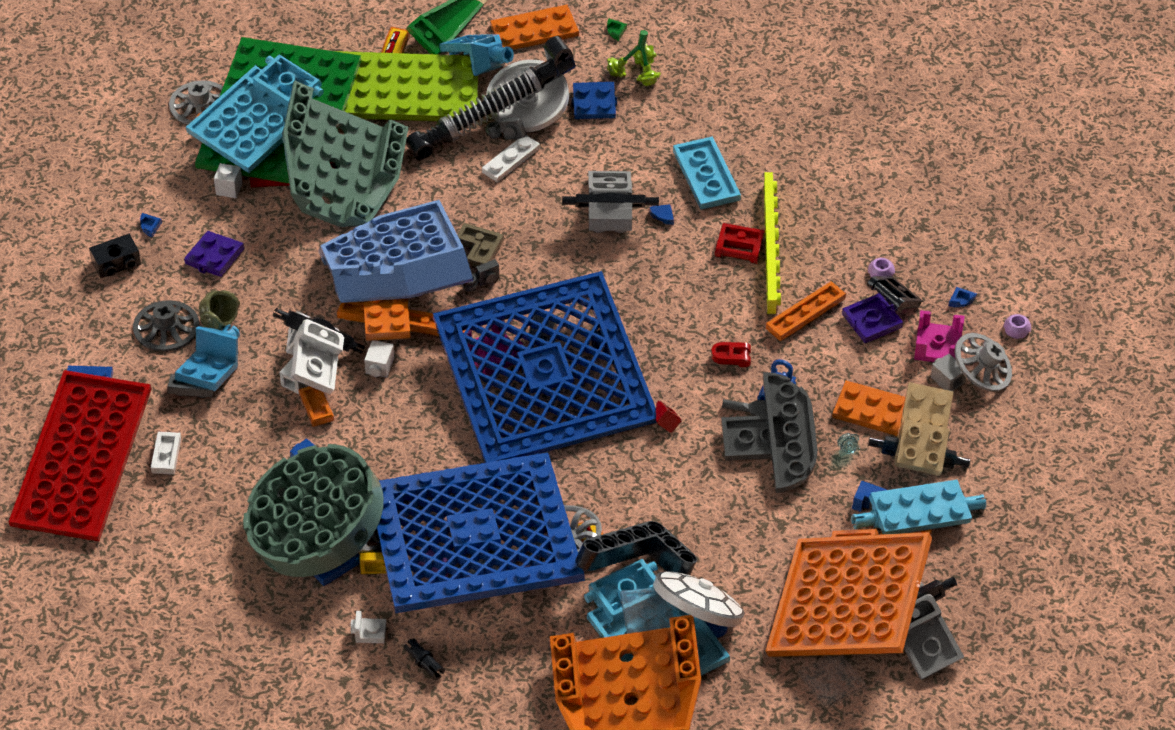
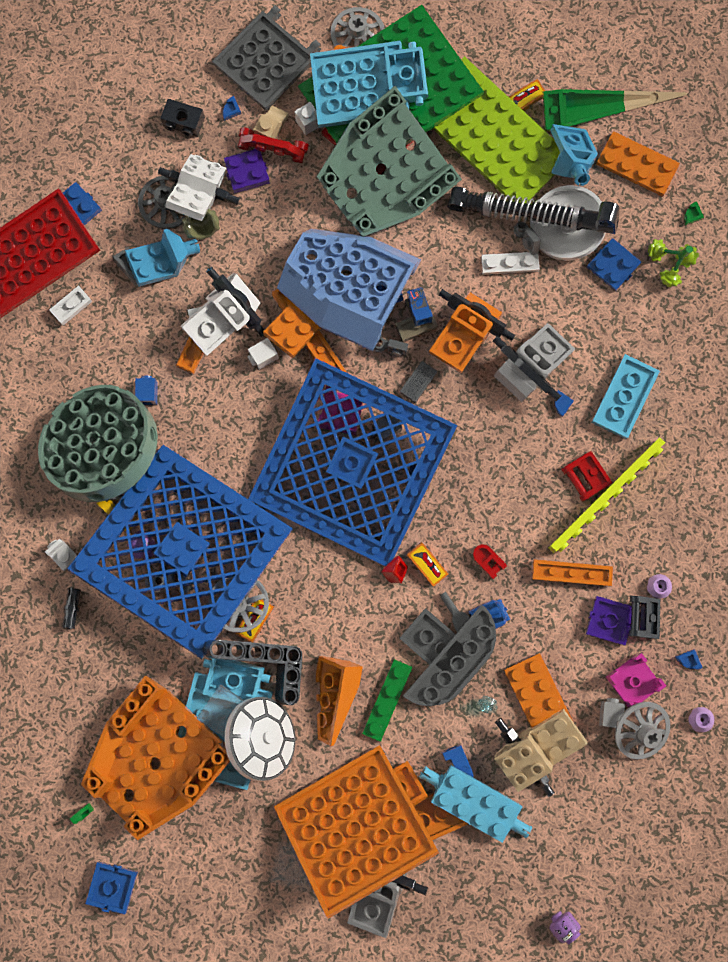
camera: 45 degrees right, 30 degrees up
(141, 170) = (265, 59): none -> dark grey plate
(185, 284) = (196, 187): none -> white piece
(200, 210) = (271, 122): none -> tan arch
(216, 217) = (279, 147): none -> red plate
(474, 229) = (419, 306): none -> blue leg
(529, 277) = (418, 381): none -> dark grey tile
(531, 215) = (467, 329): none -> orange piece
(686, 392) = (427, 564): none -> slope
(717, 529) = (338, 688): none -> orange wedge
(767, 508) = (387, 700): none -> green plate
(1087, 534) = (565, 927): none -> medium lavender head

